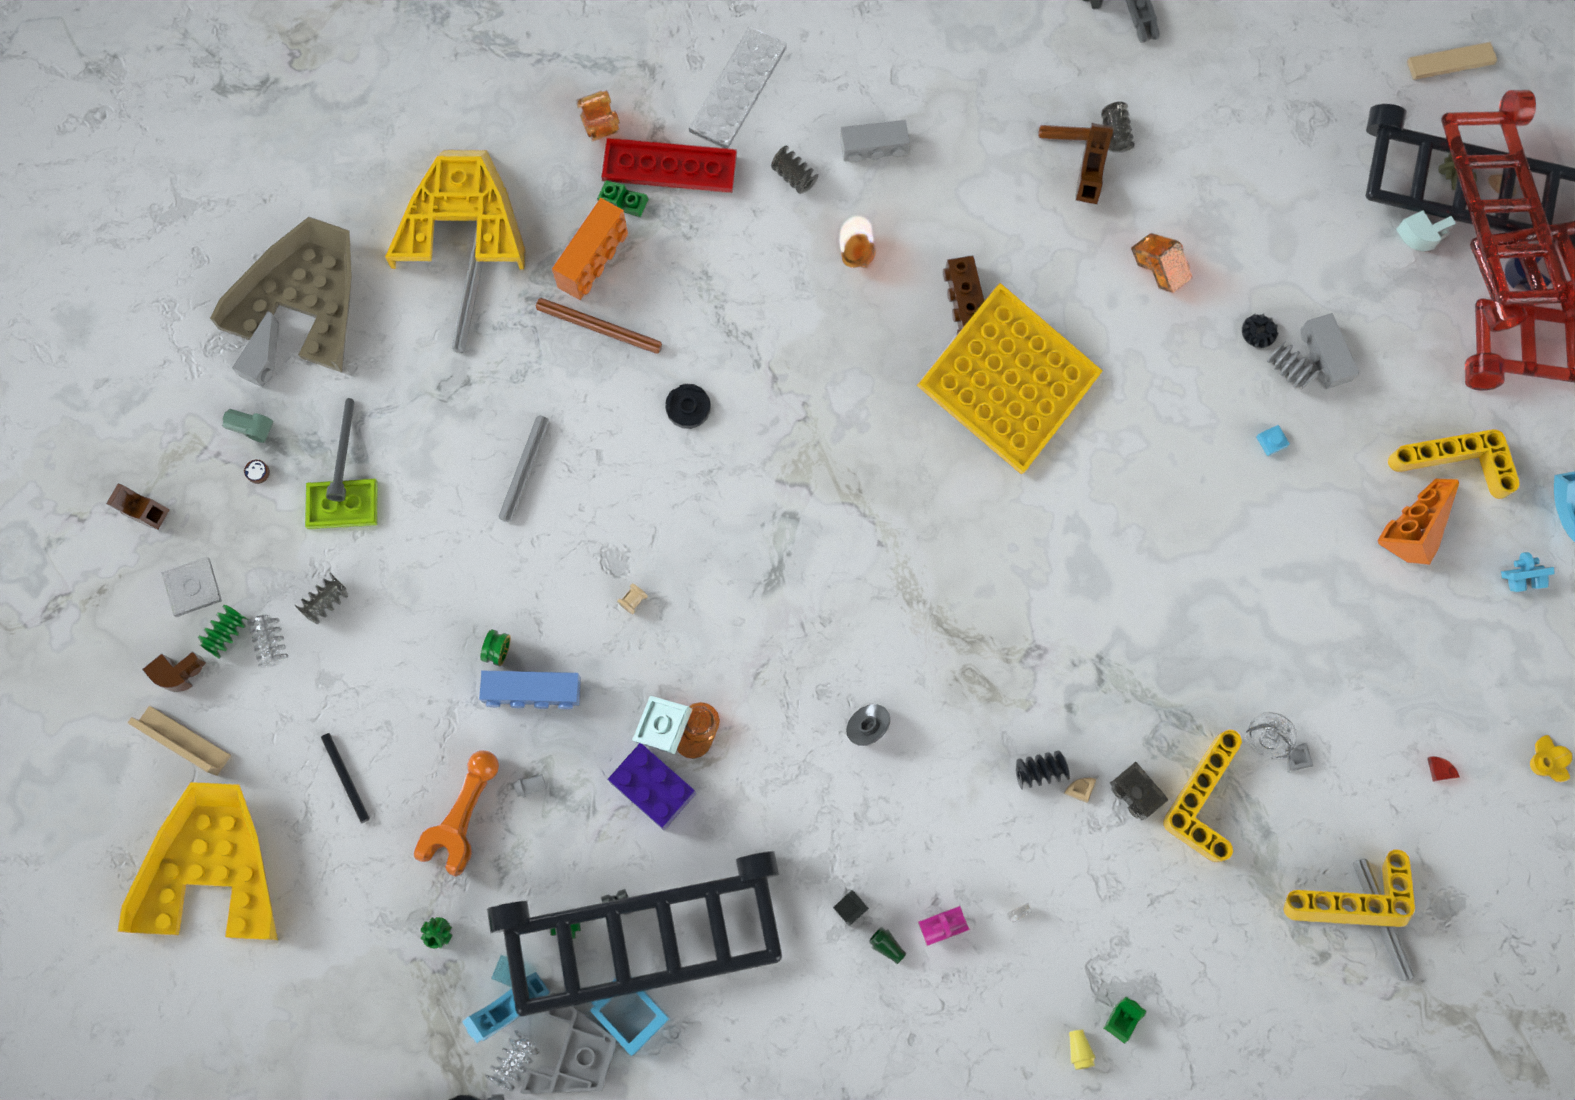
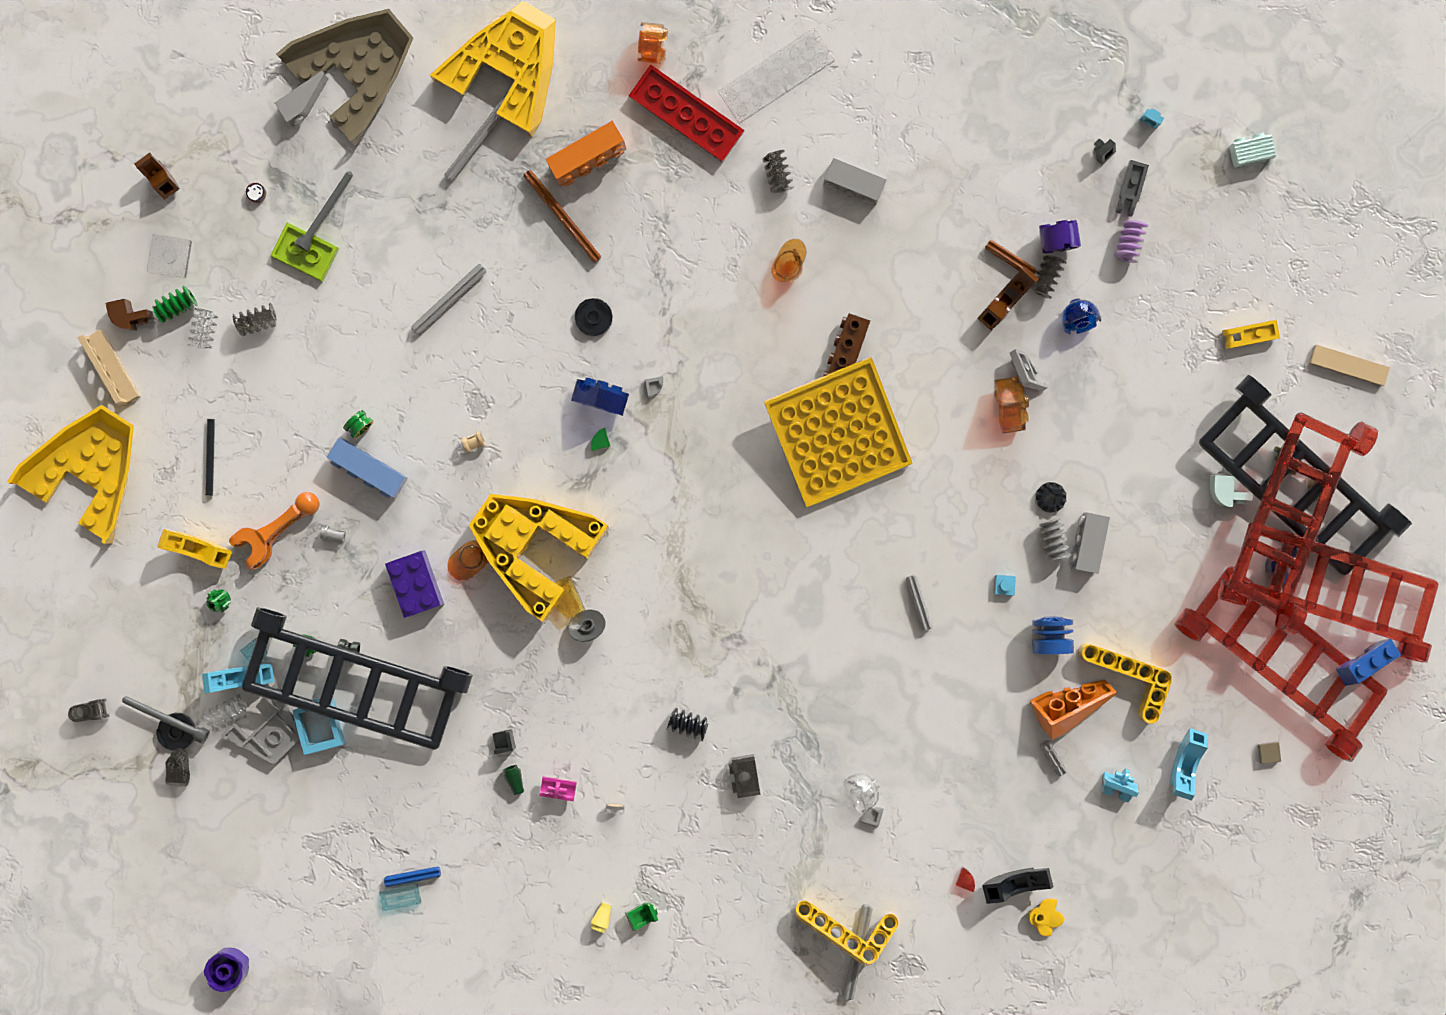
camera: 30 degrees right, 15 degrees up
(252, 426) = (268, 155): sand green piece -> none
(379, 886) = (195, 547): none -> yellow arch
(627, 200) = (636, 121): green slope -> none
(662, 724) = (445, 545): light aqua tile -> none
(721, 666) = (506, 529): none -> yellow piece
(741, 475) = (600, 395): none -> clear blue brick
(767, 524) = (600, 440): none -> green tile
(790, 440) = (653, 386): none -> light grey tile
(824, 710) = (571, 602): none -> clear yellow wing
(1081, 789) = (708, 751): tan tile -> none
(1106, 84) = (1059, 237): none -> dark purple brick
(1159, 225) = (1026, 370): none -> light grey wing
(1173, 56) = (1129, 240): none -> lavender piece
(1173, 146) = (1080, 316): none -> clear blue cylinder
(1199, 506) = (919, 602): none -> light grey axle
(1200, 795) = (787, 802): yellow beam -> none
(1343, 80) = (1252, 334): none -> yellow plate
(1357, 458) = (1052, 636): none -> blue wheel
(1441, 586) = (1053, 758): none -> light grey axle
(1493, 742) = (1015, 882): none -> black arch

